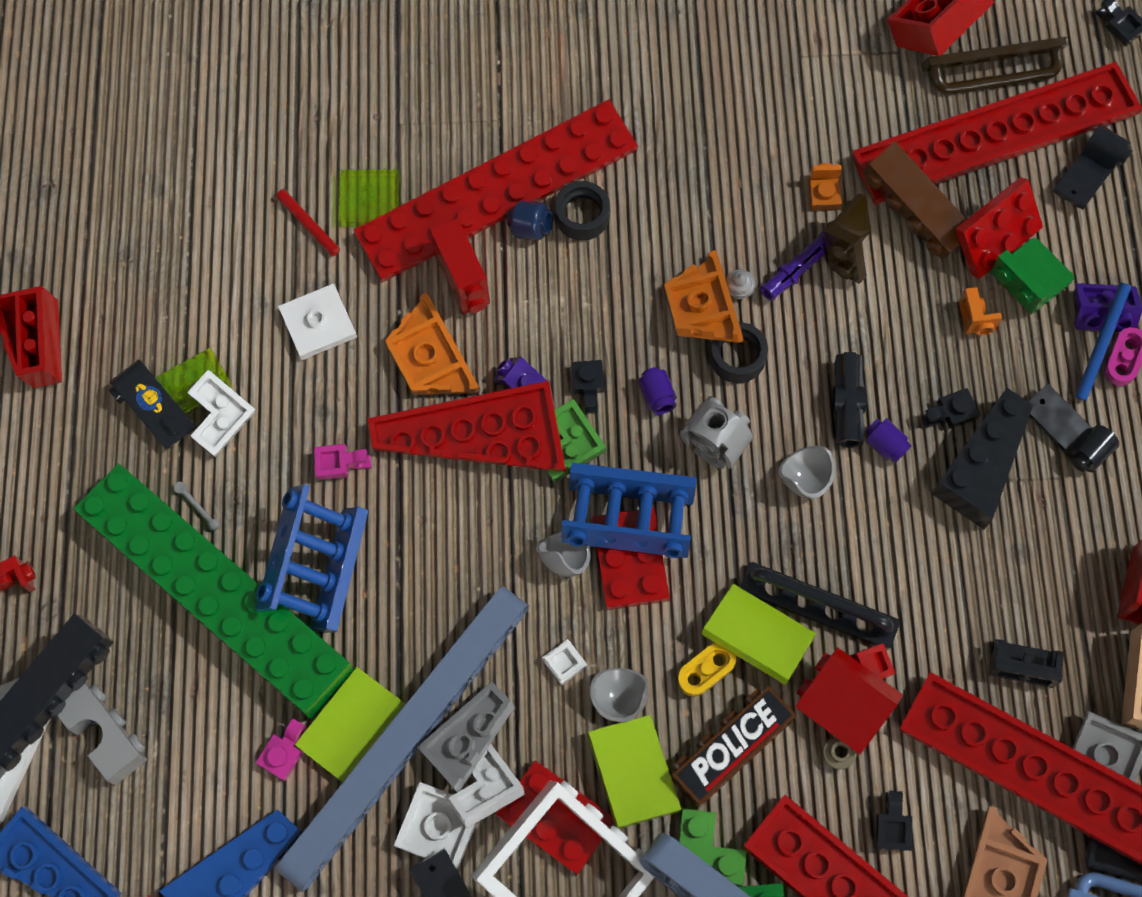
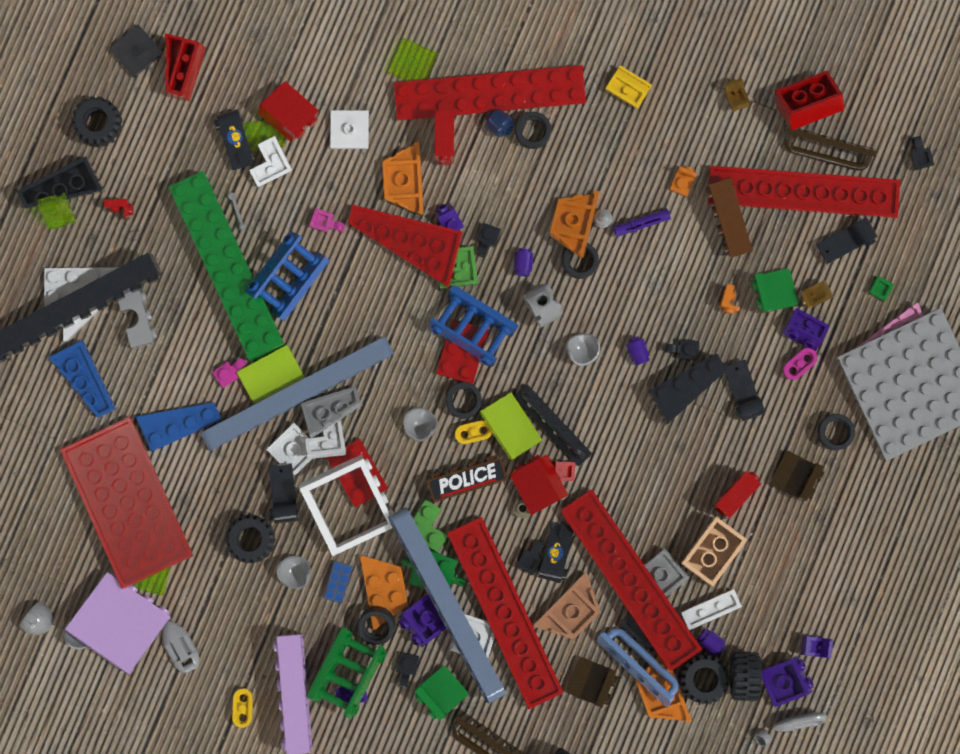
camera: 20 degrees right, 15 degrees up
(215, 330) = (288, 112): none -> red brick
(309, 224) = (370, 63): red bar -> none
(563, 557) = (423, 335): light grey helmet -> none
(564, 662) = (399, 392): white tile -> none
(633, 772) = (408, 468): lime tile -> none
(674, 604) = (468, 386): none -> black tyre
(686, 102) = (628, 87): none -> yellow plate
(836, 51) = (736, 95): none -> pearl gold bracket
(845, 239) = (674, 219): dark brown bracket -> none
(849, 400) = (628, 317): black piece -> none
(929, 799) = (556, 553): none -> black door
(999, 227) = (768, 255): red plate -> none
(1026, 664) = (647, 507): black hinge -> none
(1094, 253) = (816, 294): none -> pearl gold bracket
(1103, 341) = (789, 350): blue bar -> none

